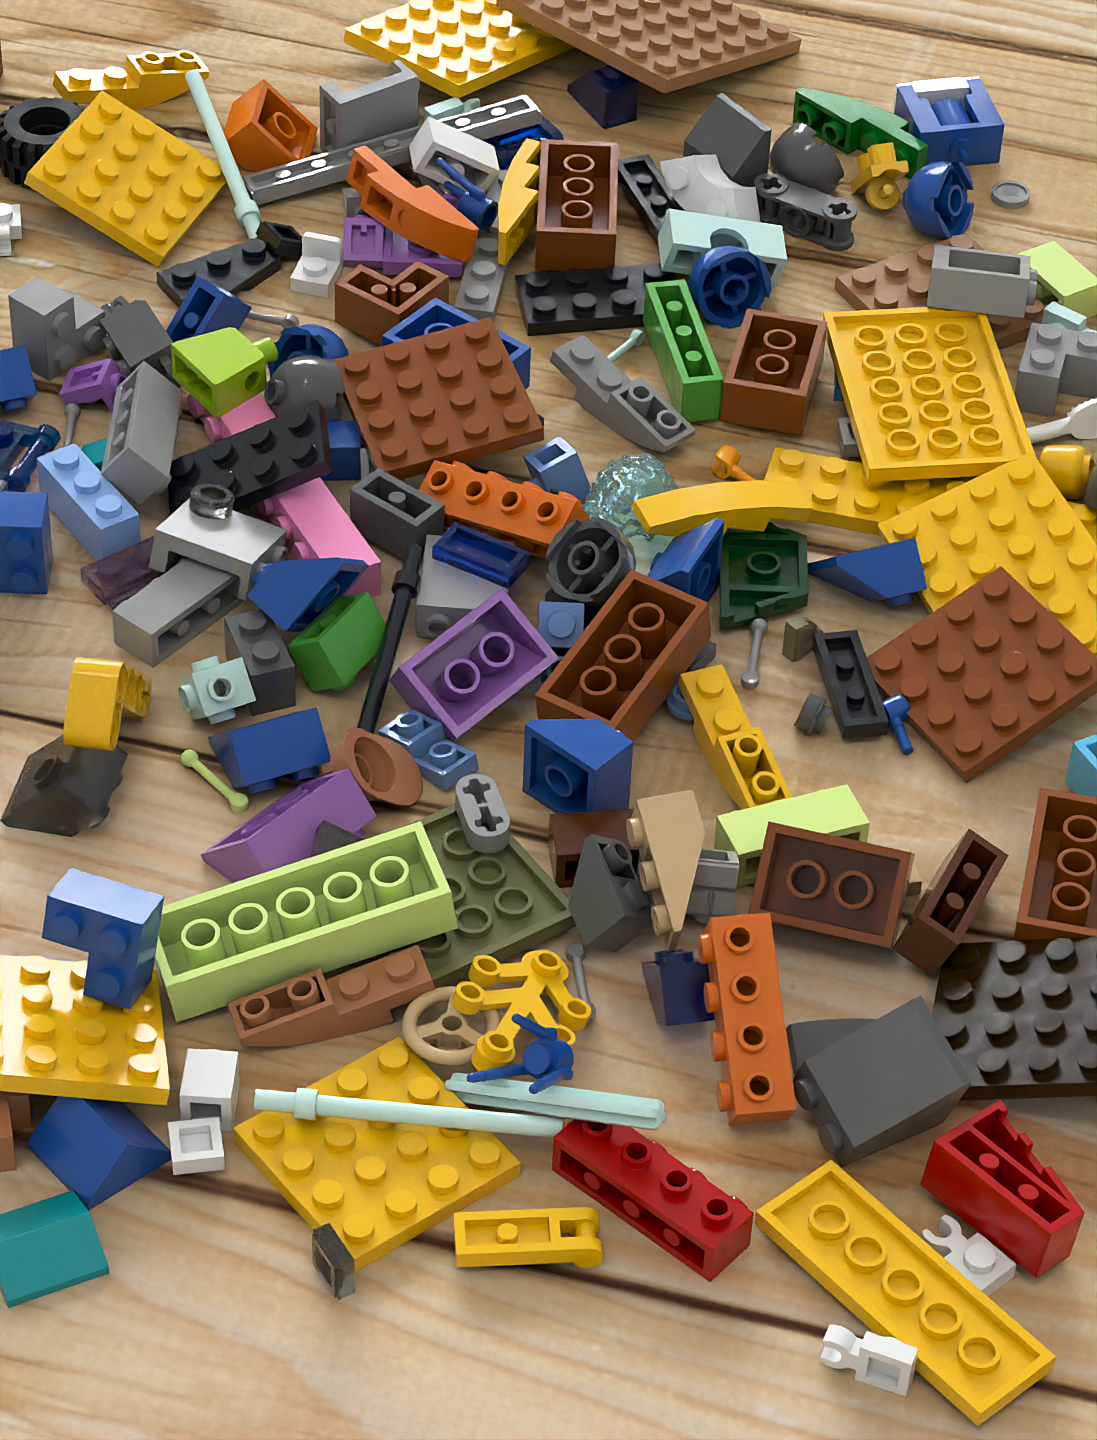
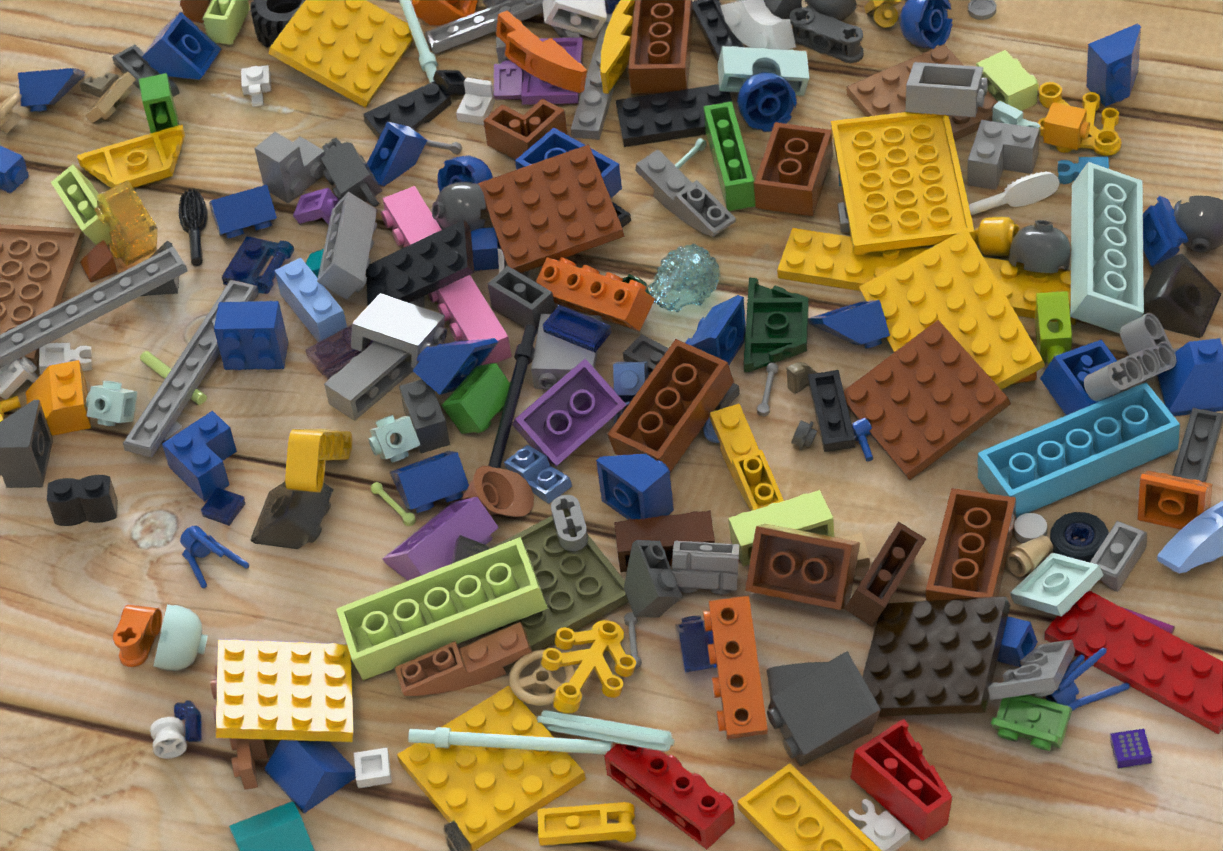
camera: 10 degrees right, 5 degrees up
(72, 412) = (302, 227): light grey hinge -> none
(111, 924) = (314, 622): blue brick -> none
(210, 1086) = (382, 726): white brick -> none
(211, 501) = (392, 298): clear smoke tile -> none
(222, 368) = (402, 193): lime torso -> none
(472, 204) = (586, 49): blue plant -> none
(543, 1059) = (601, 700): blue plant -> none
(558, 468) = (634, 259): medium blue brick -> none
(589, 561) = (649, 331): dark grey cylinder -> none
(670, 844) = (690, 548): tan slope -> none
(726, 464) = (757, 243): light orange hand -> none
(737, 503) = (748, 281): yellow slope -> none

